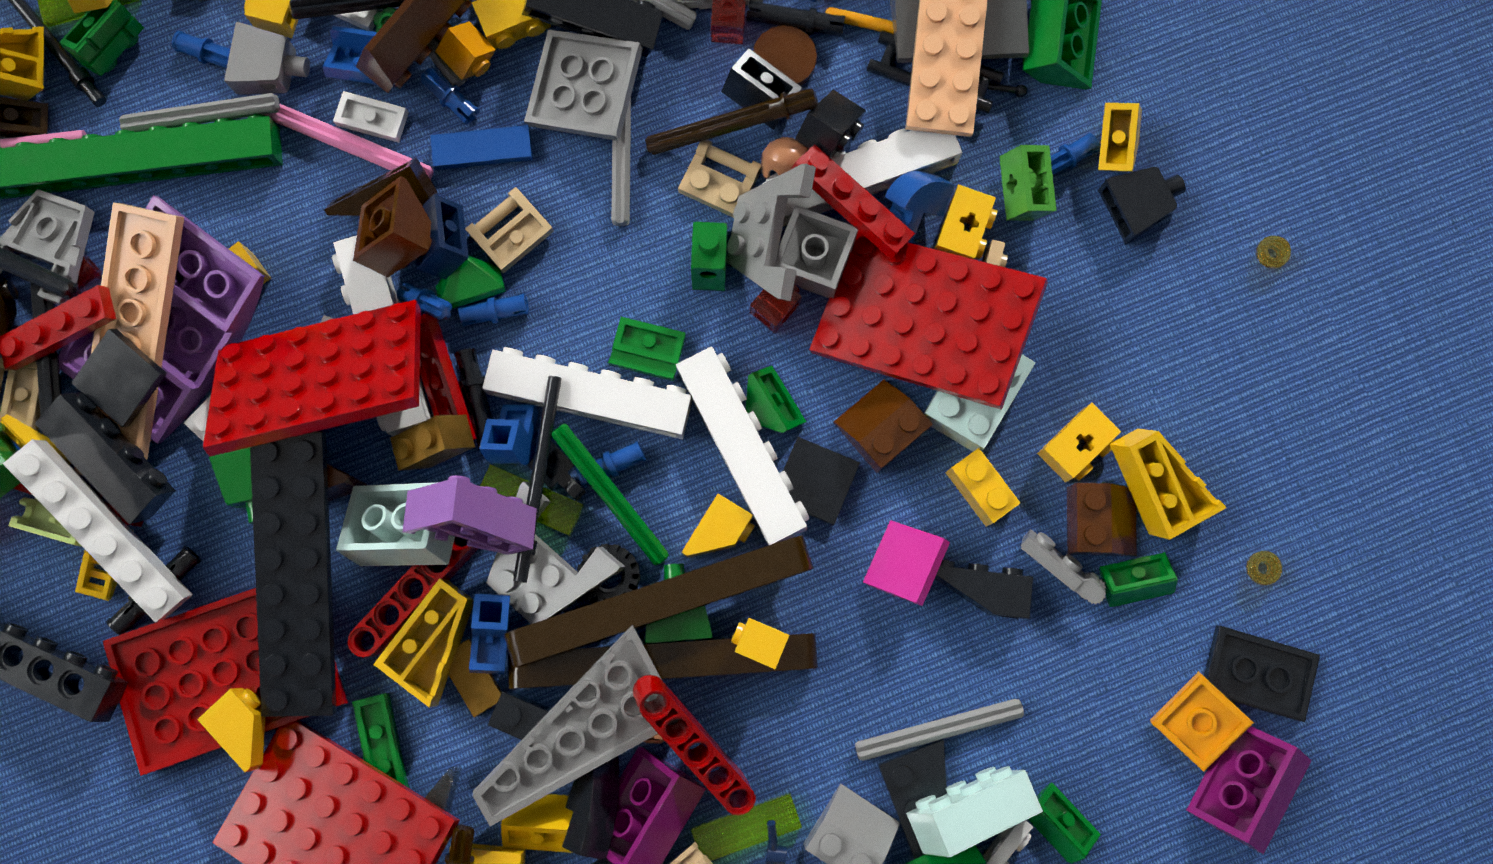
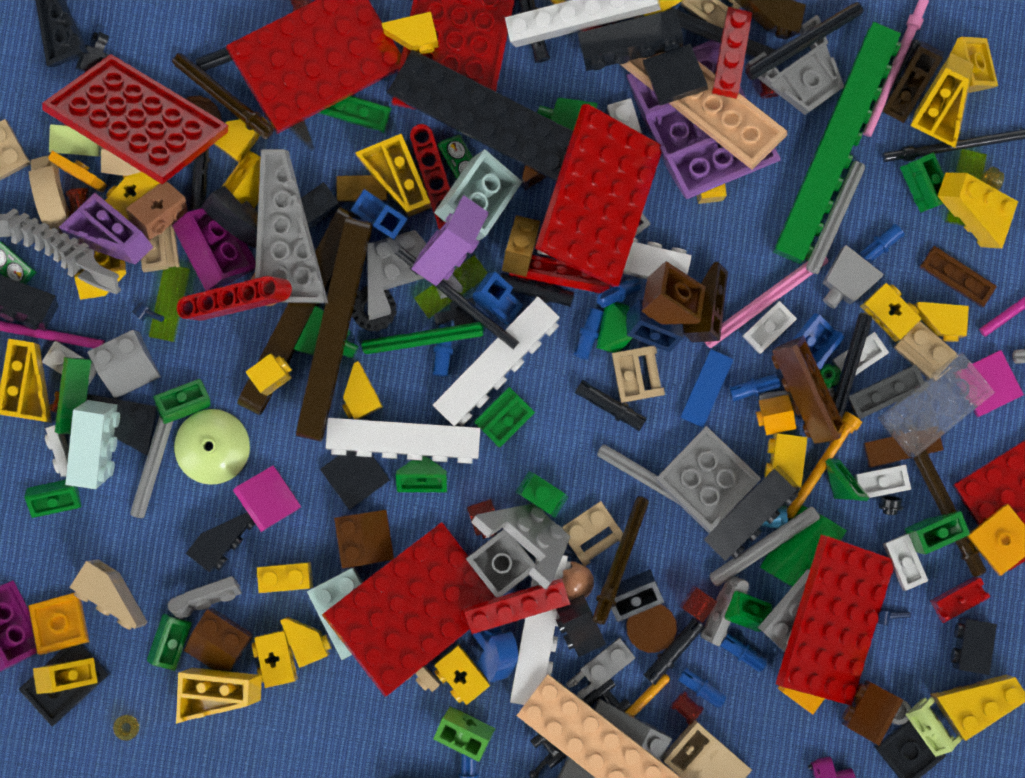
camera: 125 degrees right, 5 degrees up
(368, 587) = (455, 154): none -> slope
(563, 231) = (610, 405): none -> black pin
(854, 736) = (182, 401): none -> green slope
(860, 664) = (229, 449): none -> yellowish green dish
(862, 84) = (602, 667): none -> light grey hinge
(1038, 419) = (305, 641): none -> yellow slope
(1131, 682) = (109, 592): none -> tan slope
(1258, 673) = (65, 676): none -> yellow slope

